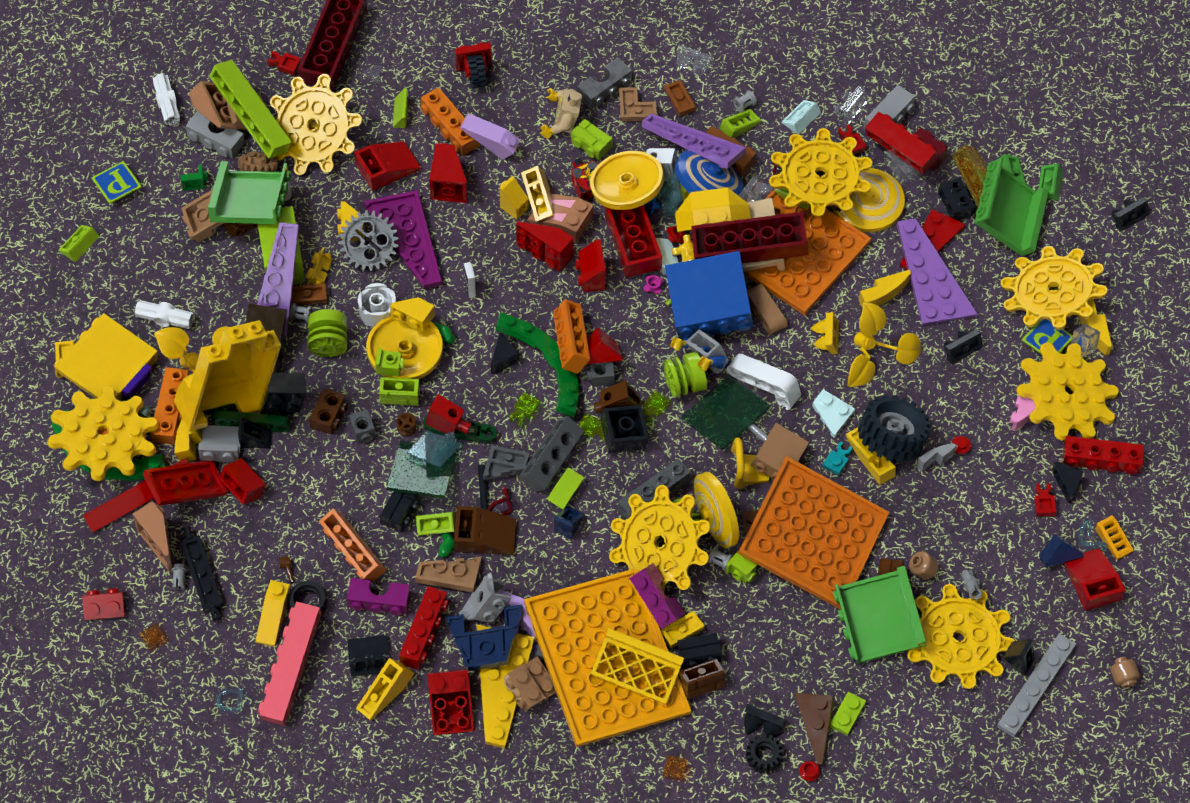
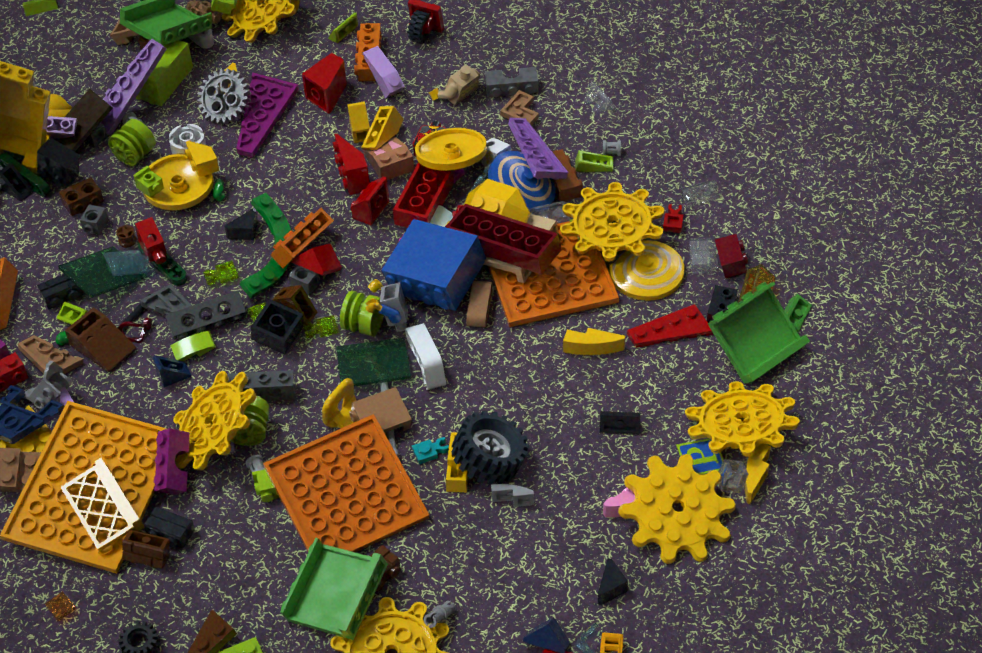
camera: 40 degrees right, 10 degrees down
(164, 314) = (43, 75): white piece -> none
(309, 294) = (151, 113): dark orange plate -> none
(320, 261) = (181, 96): yellow hinge -> none
(385, 163) = (291, 54): red slope -> none
(399, 391) = (141, 207): lime brick -> none
(469, 278) = (268, 160): white tile -> none
(591, 139) = (462, 113): lime brick -> none
(651, 205) = (464, 182): blue plant -> none
(679, 98) = (561, 121): dark orange plate -> none
(682, 629) = (175, 502): yellow plate -> none
(717, 509) = (274, 420): yellow dish -> none
(755, 716) = (165, 607): black tile -> none
(802, 116) = (651, 182): light aqua slope -> none
(830, 328) = (515, 350): yellow tile -> none
(832, 411) = (458, 408): light aqua wing -> none
(872, 320) = (540, 347): yellow plant -> none
(895, 104) = (725, 213): light grey brick -> none
(901, 142) = (705, 234): red brick -> none
(923, 565) = (415, 574): medium nougat head -> none
(933, 285) = (638, 363): medium lavender wing -> none
(962, 443) = (544, 499): red plate -> none
(1044, 502) = (574, 589): red plate -> none
(1051, 180) = (825, 339): bright green slope -> none
(1103, 455) = (663, 580): red brick -> none
(1131, 213) = (874, 400): black tile -> none

